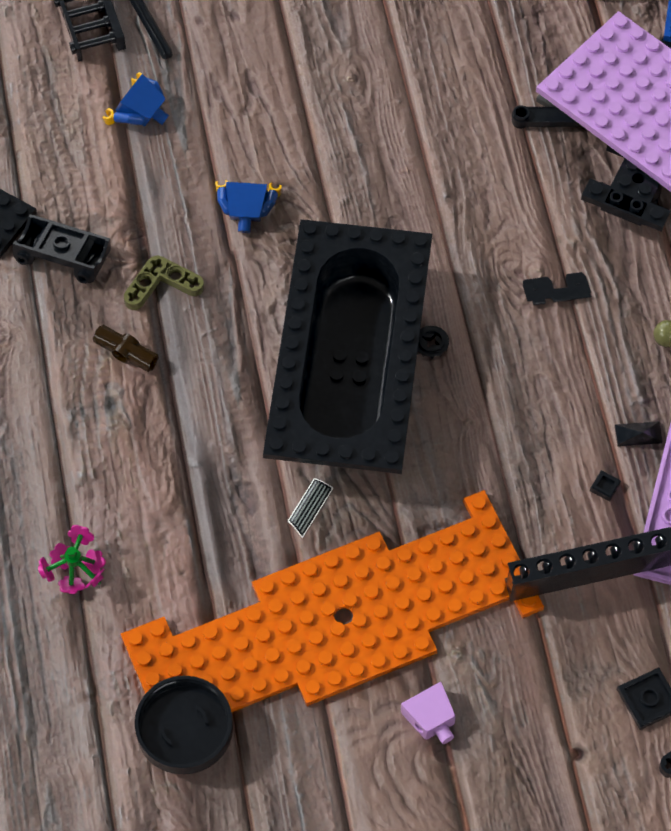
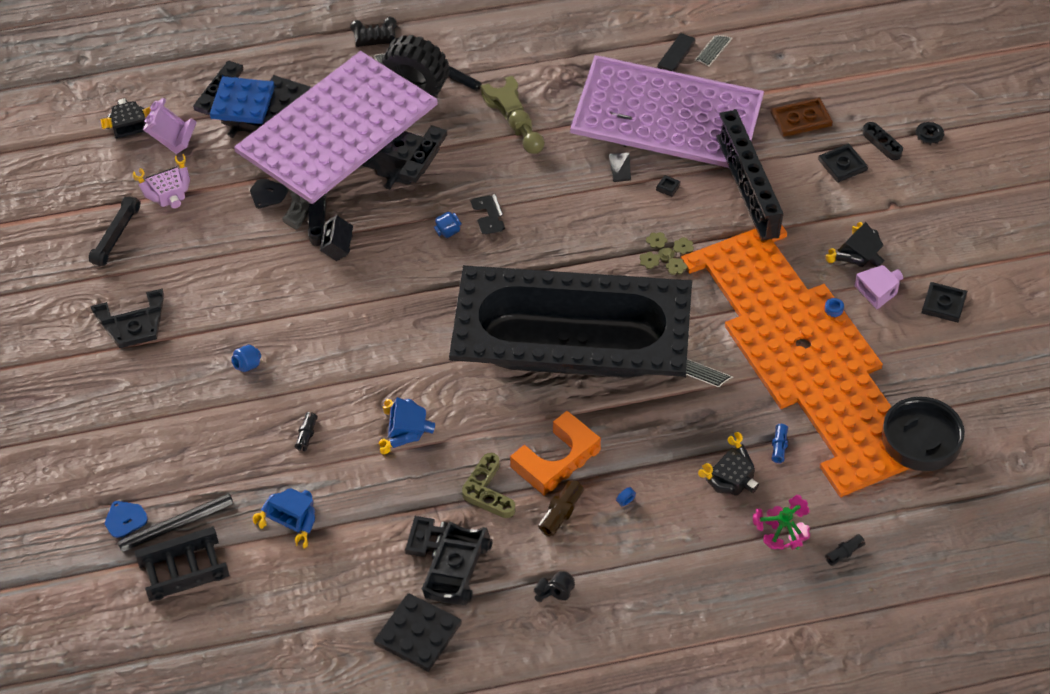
camera: 90 degrees left, 10 degrees down
(26, 342) = (558, 587): none -> black piece
(44, 630) = (845, 549): none -> black pin
(103, 219) = (420, 536): none -> black plate
(134, 411) = (626, 496): none -> blue tile
(155, 518) = (732, 471): none -> black torso
(197, 576) = (779, 443): none -> blue pin
(206, 371) = (546, 474): none -> orange arch
(247, 116) = (306, 431): none -> black pin
(344, 57) = (246, 358): none -> blue head
(391, 652) = (834, 307): none -> blue tile
(406, 793) = (944, 302): none -> black tile
(490, 475) = (674, 265): none -> olive plant
(492, 696) = (859, 247): none -> black torso
(510, 133) = (336, 238): none -> black brick
(534, 243) = (447, 224): none -> blue head

